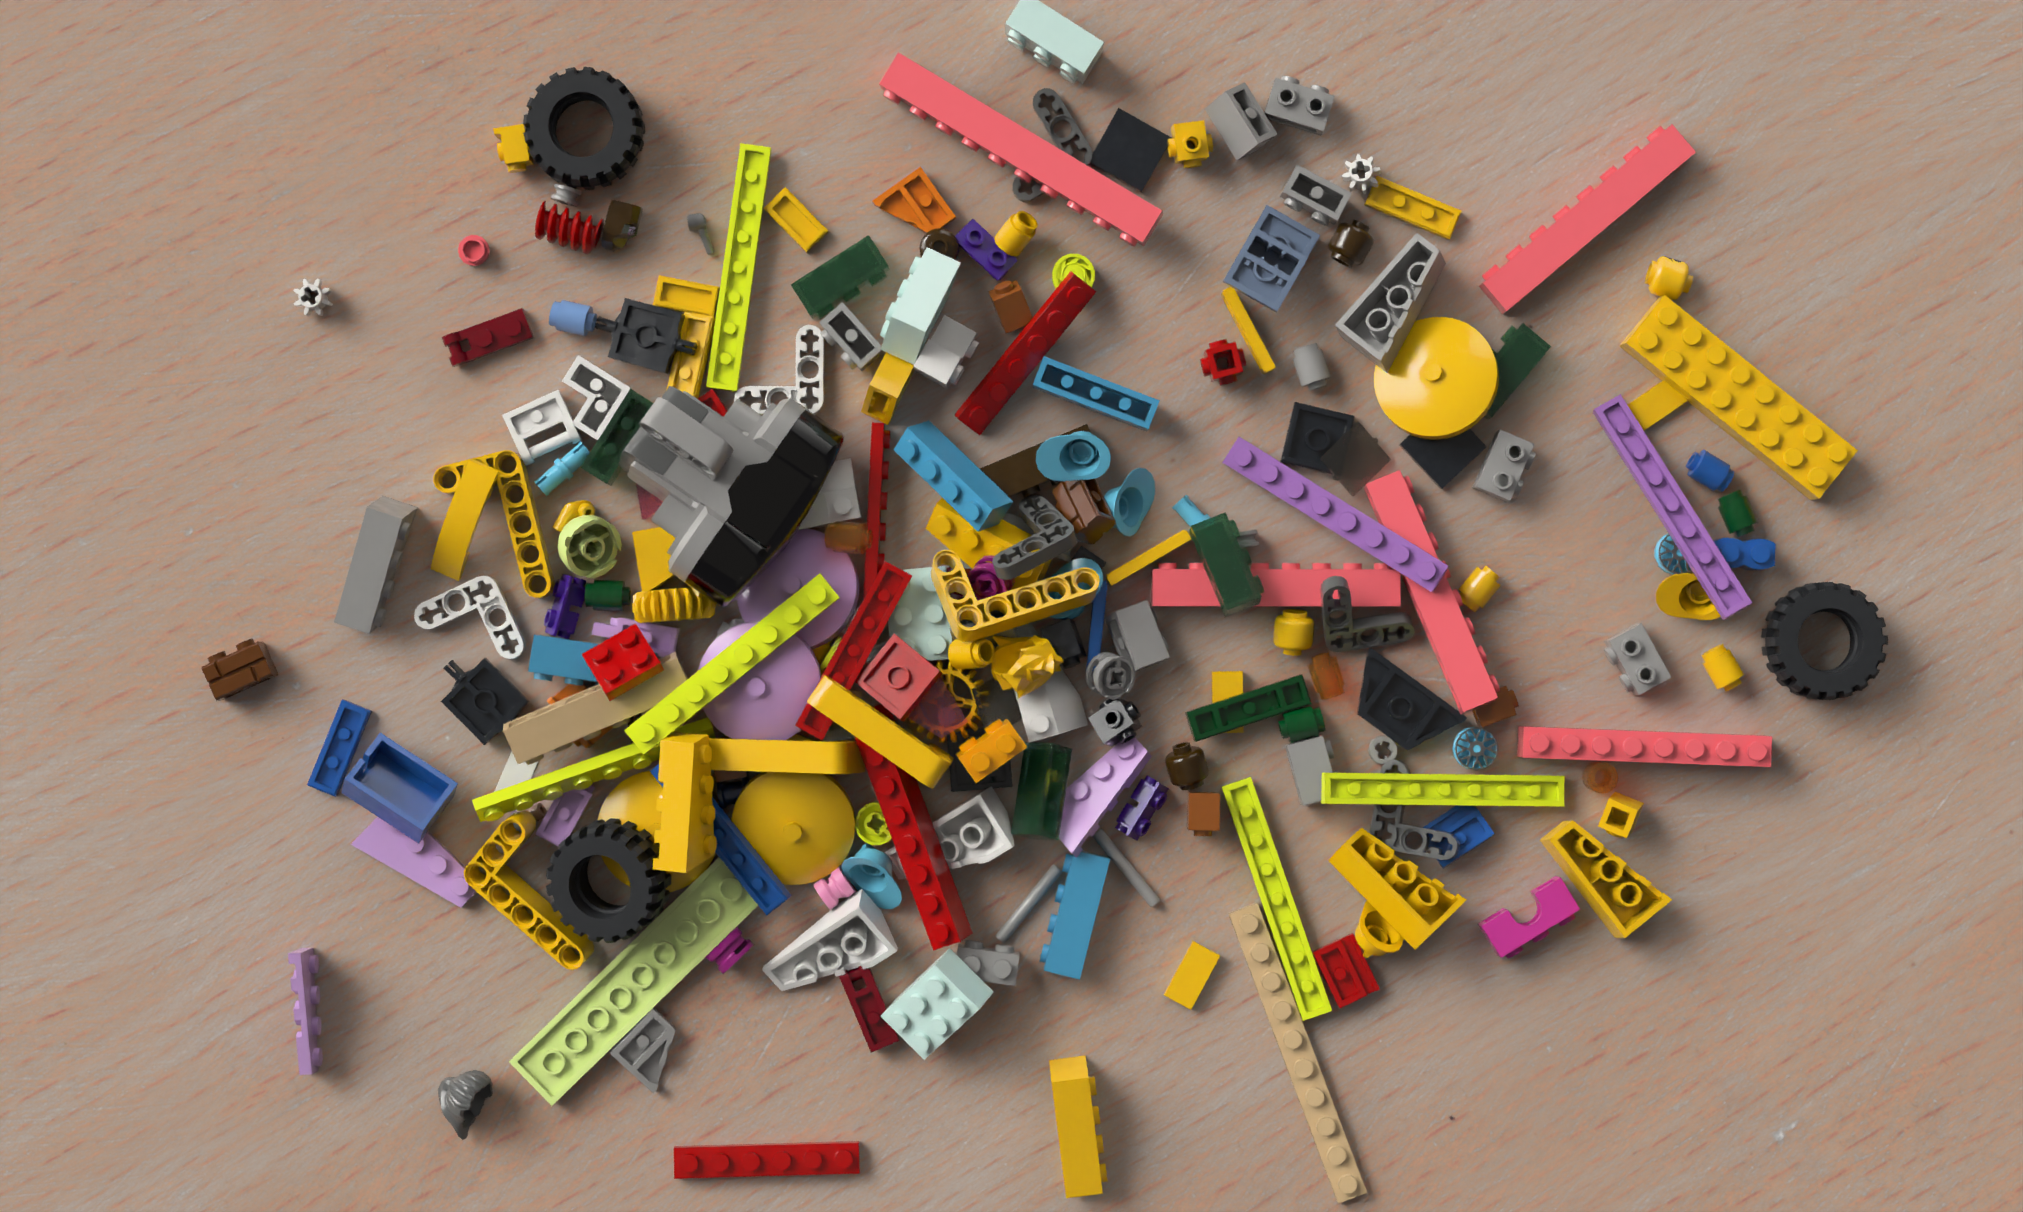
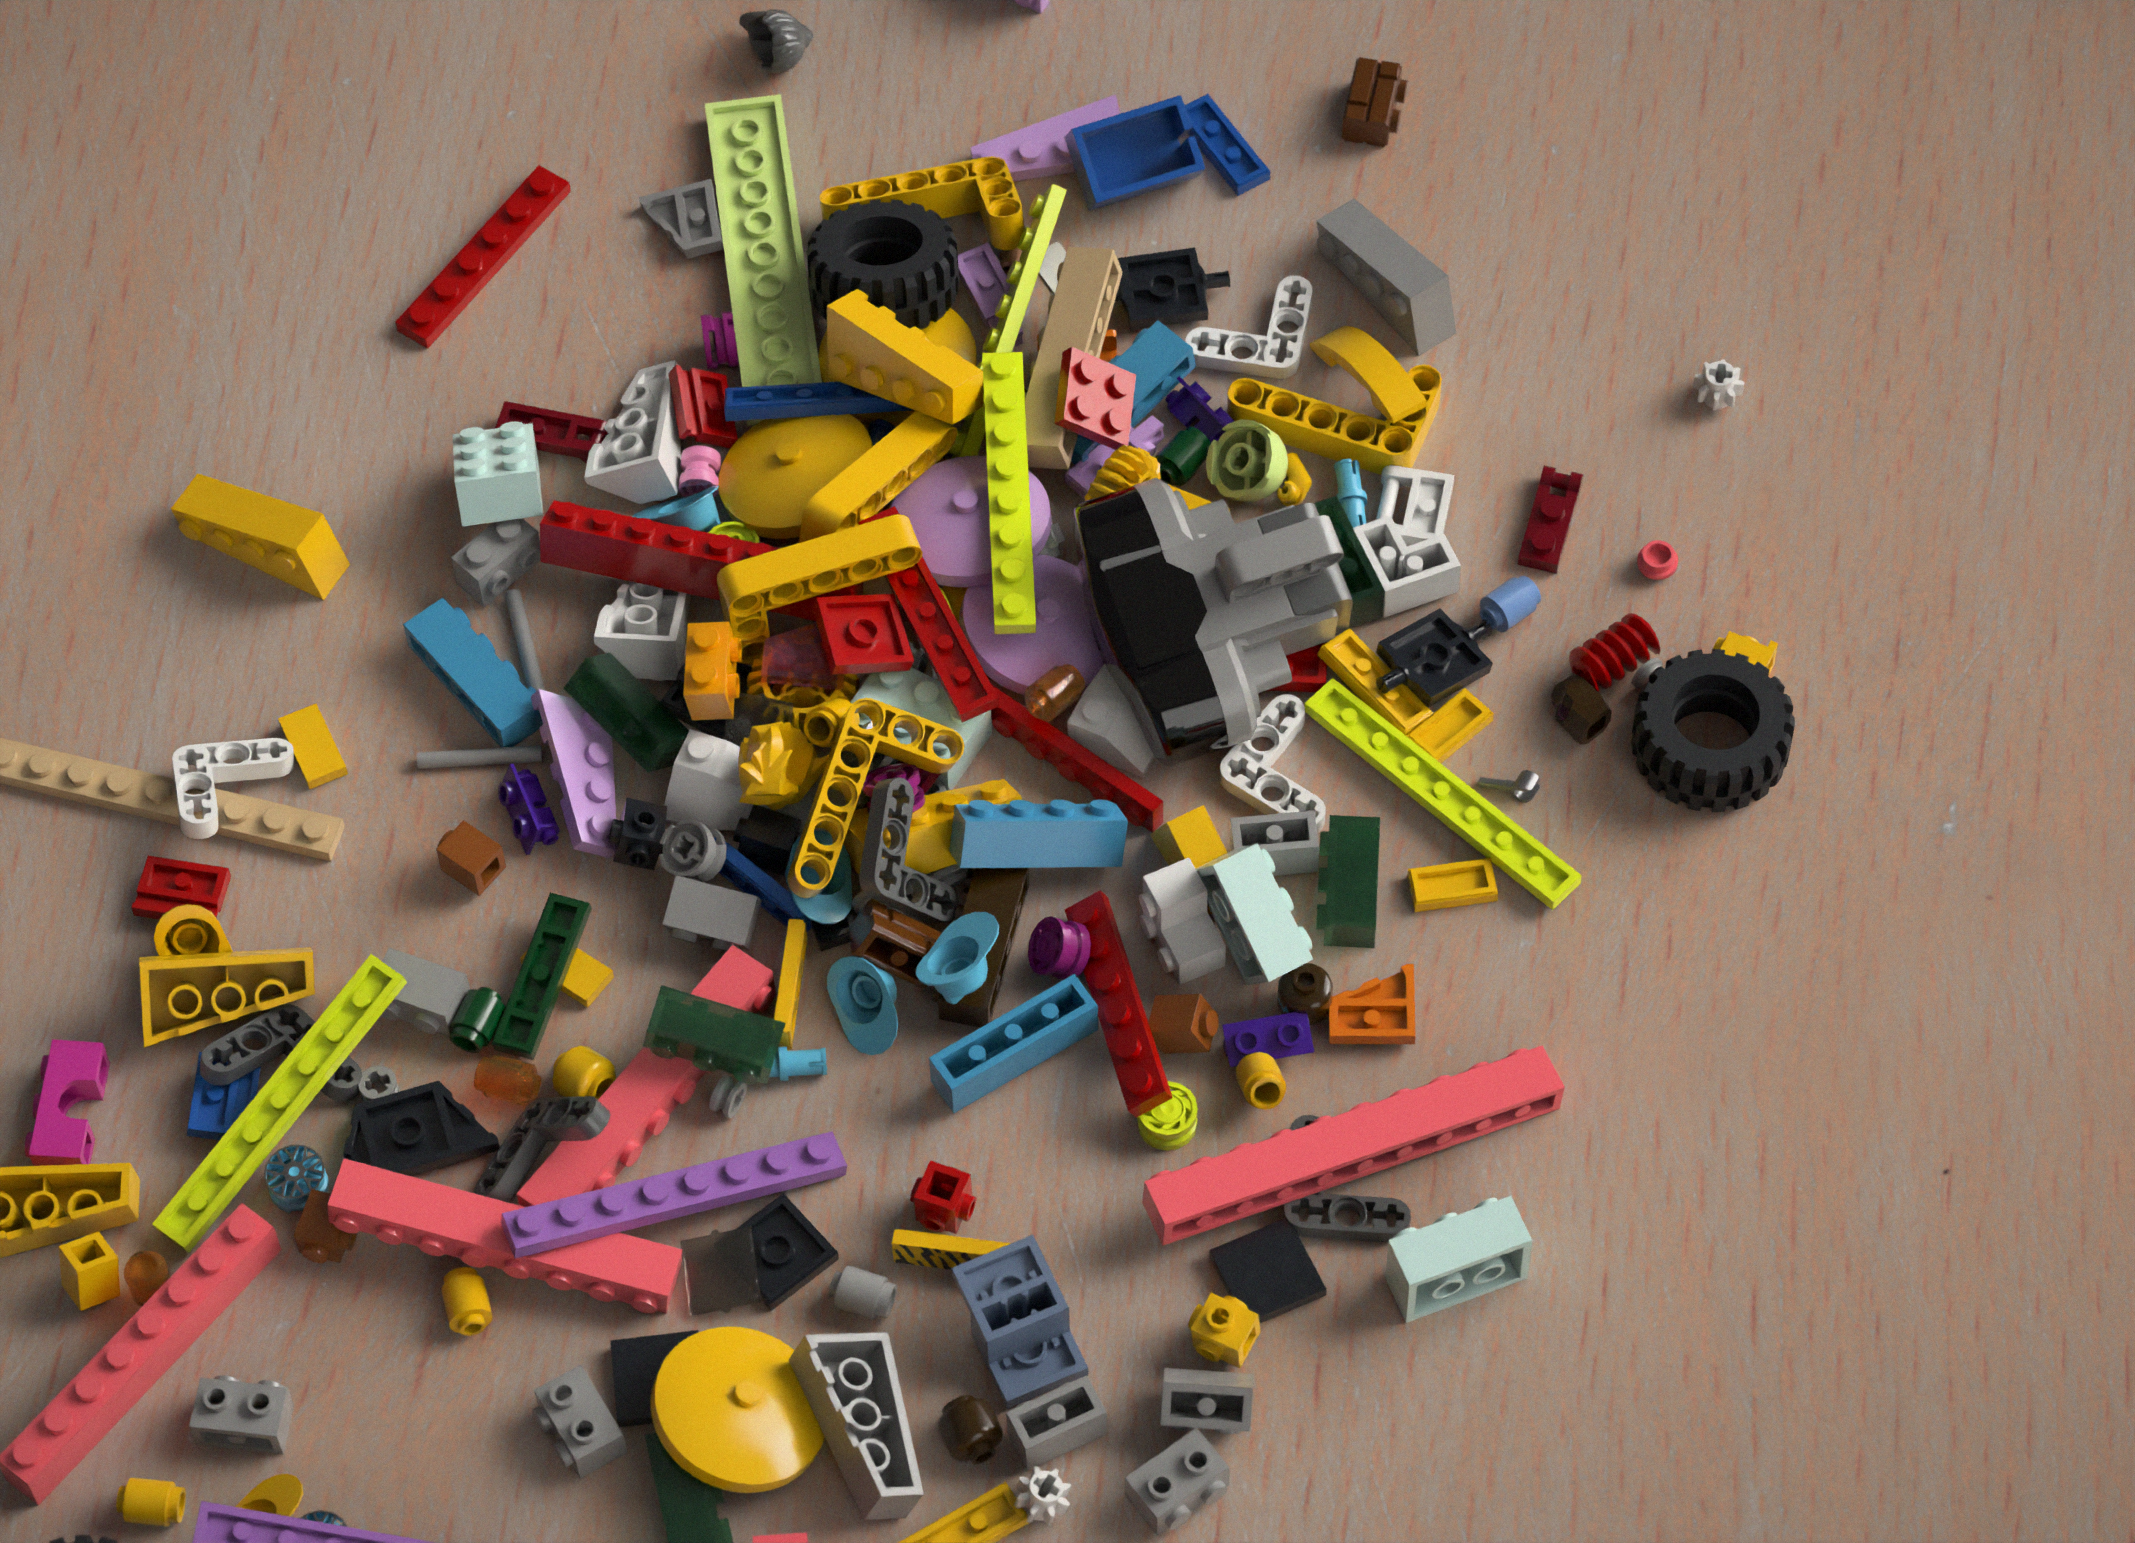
camera: 125 degrees right, 30 degrees down
(786, 925) = (700, 406): none -> red plate
(1013, 413) = (1059, 948): none -> magenta wheel
(1186, 766) = (532, 875): dark brown head -> none
(1256, 1016) = (273, 760): none -> white beam
(1276, 898) = (325, 877): neon yellow plate -> none

